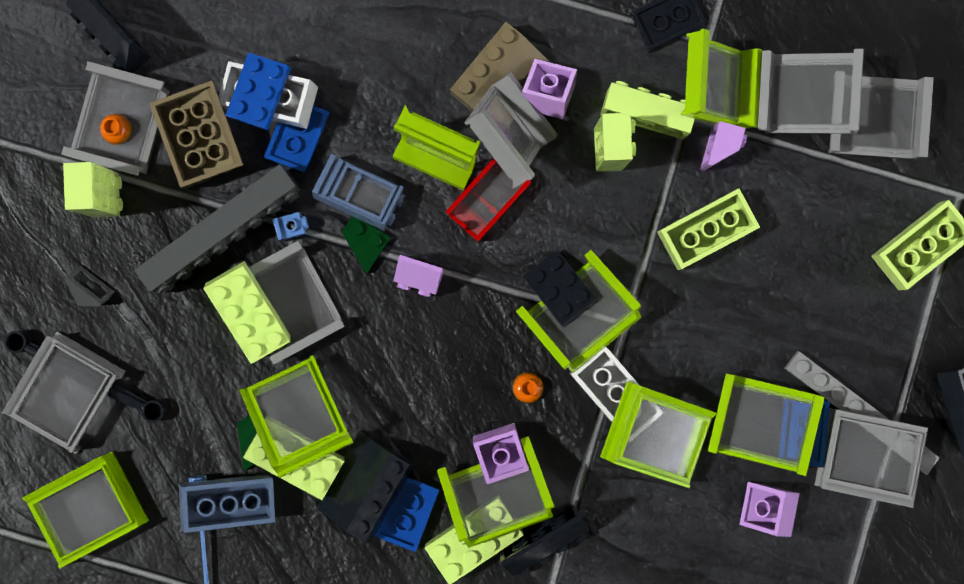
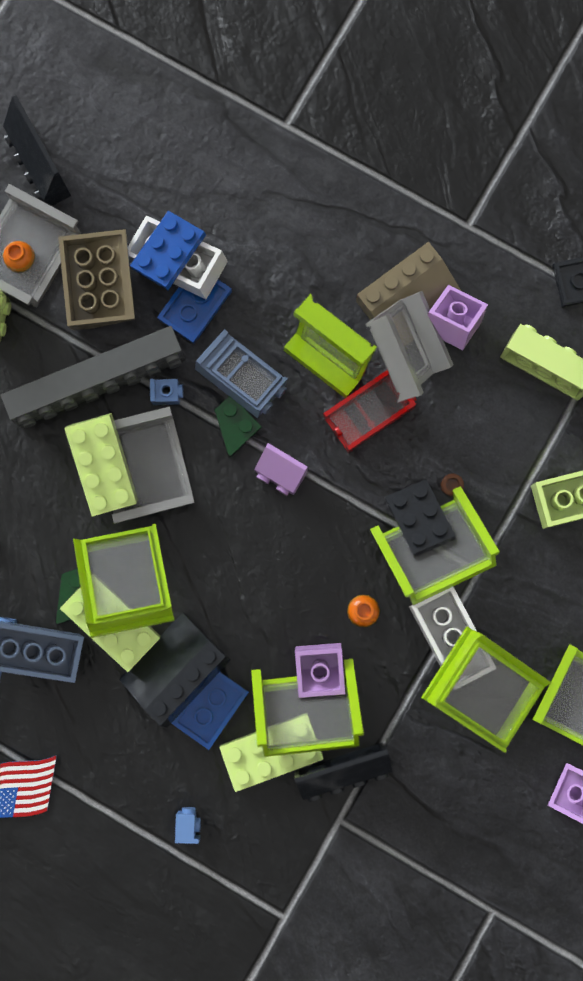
camera: 20 degrees right, 5 degrees down
(582, 247) = (451, 482): none -> reddish brown tile
(614, 142) = (509, 382): yellowish green brick -> none

